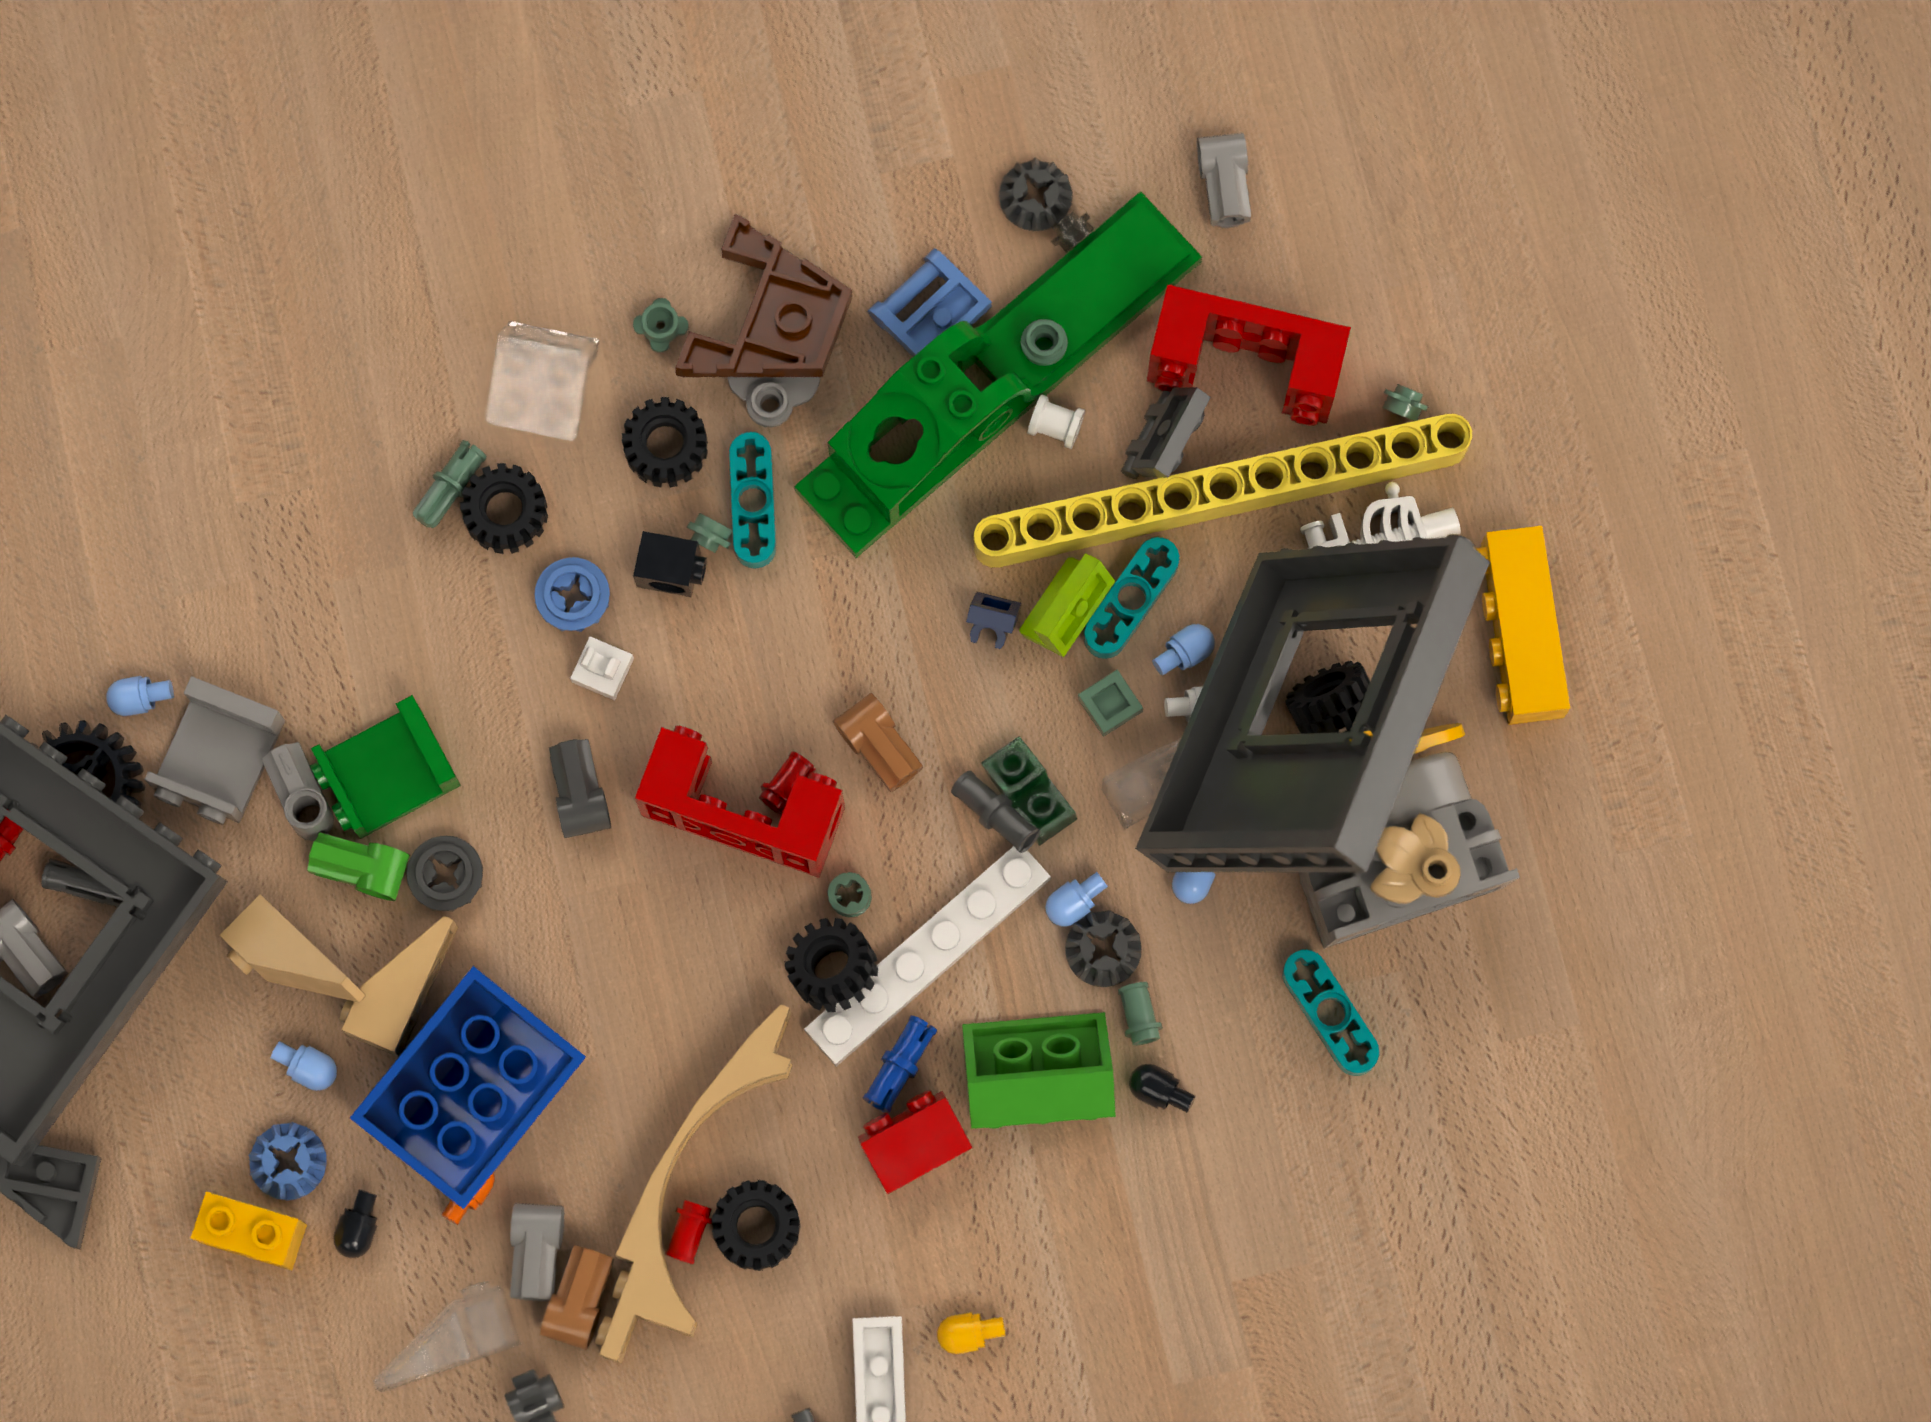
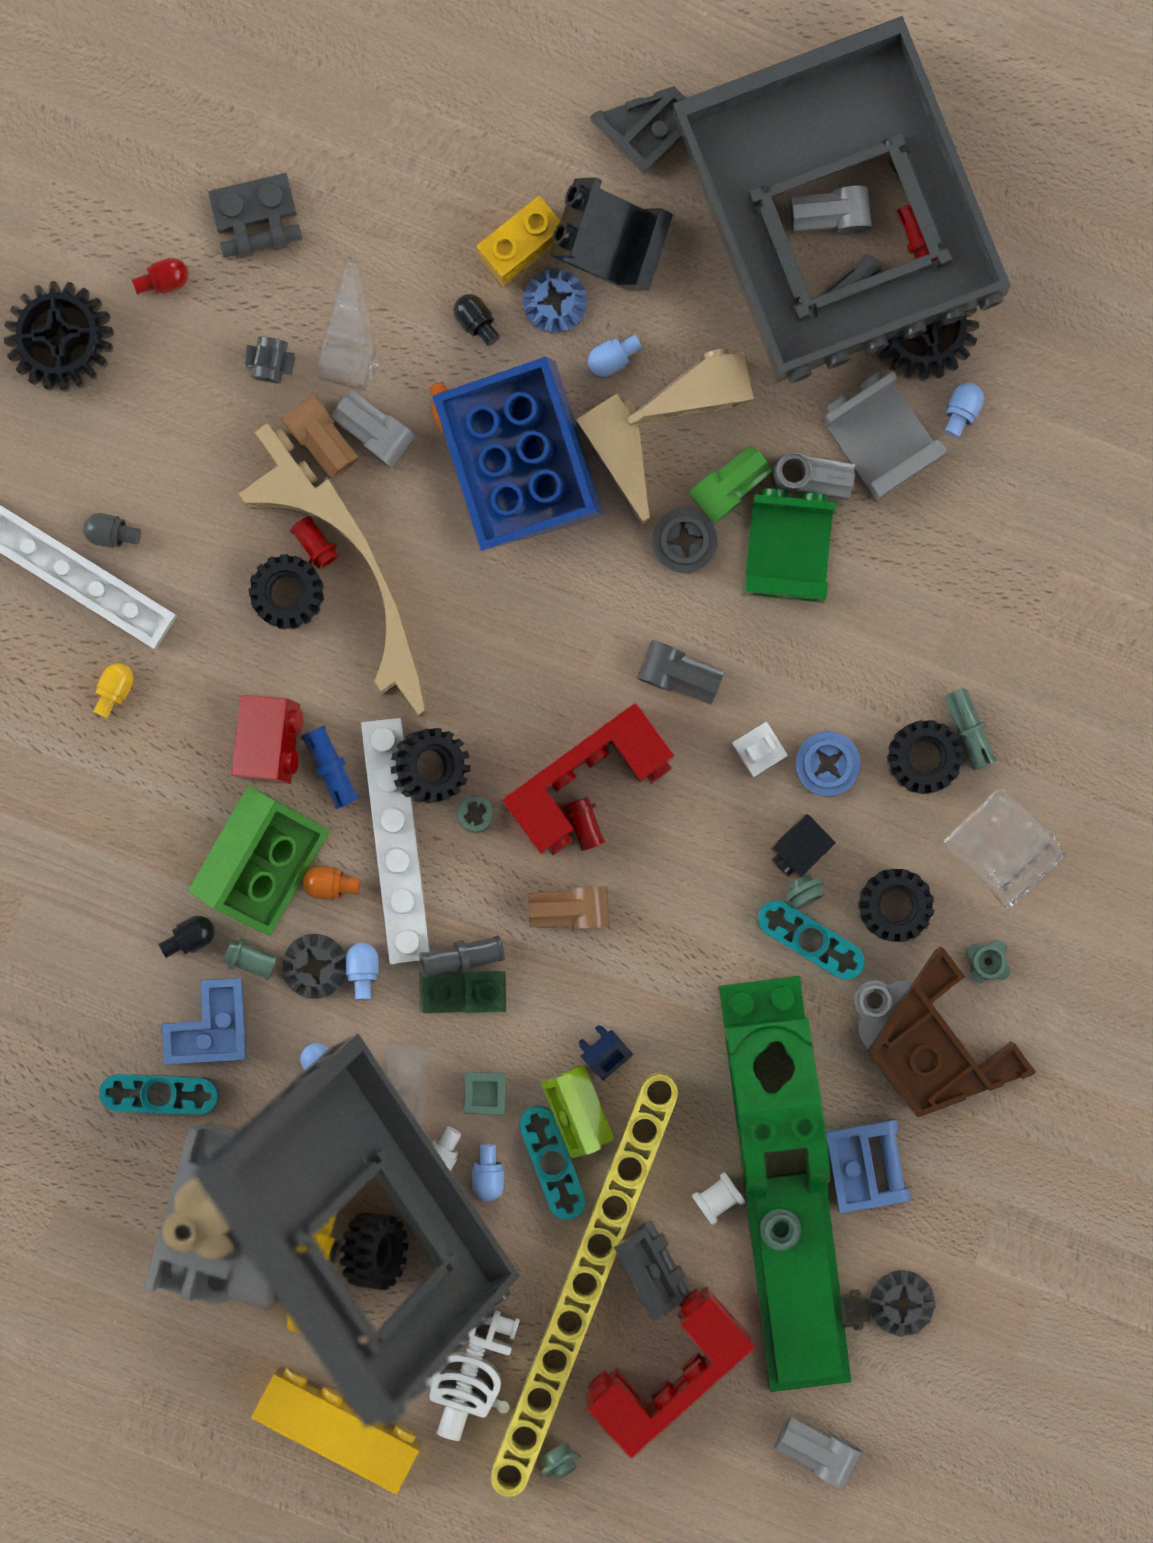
camera: 125 degrees right, 10 degrees up
(186, 1141) = (610, 236): none -> black panel
(1013, 988) = (329, 883): none -> orange cylinder
(1232, 993) = (218, 1035): none -> medium blue plate

